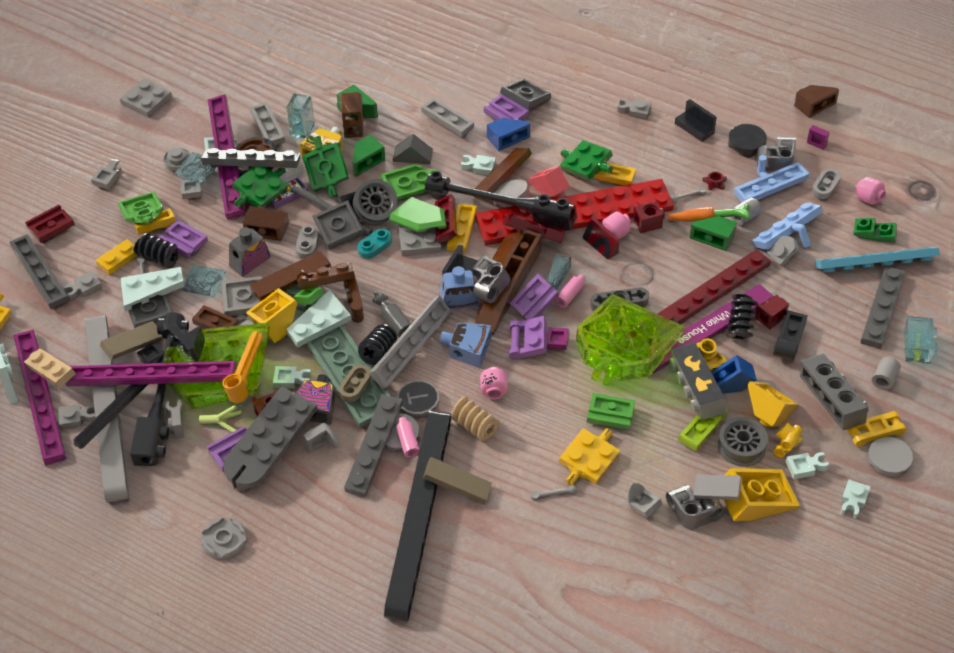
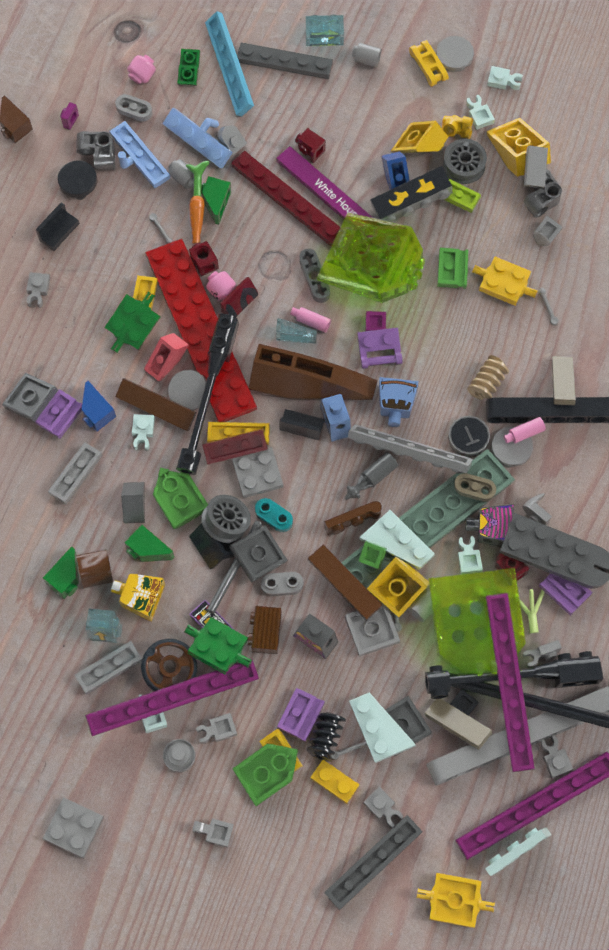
camera: 100 degrees left, 20 degrees up
(49, 223) = (300, 874): dark red plate -> none
(49, 367) = (517, 793): tan plate -> none
(190, 343) = (471, 648): black slope -> none
(194, 170) = (197, 723): clear light blue piece -> none
(203, 280) = (351, 679): clear light blue piece -> none
(211, 318) = (411, 649): reddish brown plate -> none
(236, 384) = (492, 583): light orange axle -> none
(251, 158) = (187, 659): dark grey plate -> none
(325, 166) = (181, 580): green plate -> none
(325, 275) = (347, 540): reddish brown plate -> none
(373, 445) = (536, 461): dark grey plate -> none
(377, 344) = (421, 479): black piece -> none
(418, 215) = (239, 469): tile -> none
(491, 279) = (340, 381): flat silver piece -> none
(494, 383) = (442, 368): bright pink head -> none
(522, 224) = (247, 365): dark red piece -> none
(534, 298) = (333, 344): medium lavender plate -> none
(712, 357) = (370, 191): yellow plate -> none
(719, 180) = (137, 202): dark red plate -> none
(741, 317) = (329, 163): black piece -> none
(790, 335) = (340, 130): black plate -> none
(834, 391) = (398, 100): dark grey brick -> none

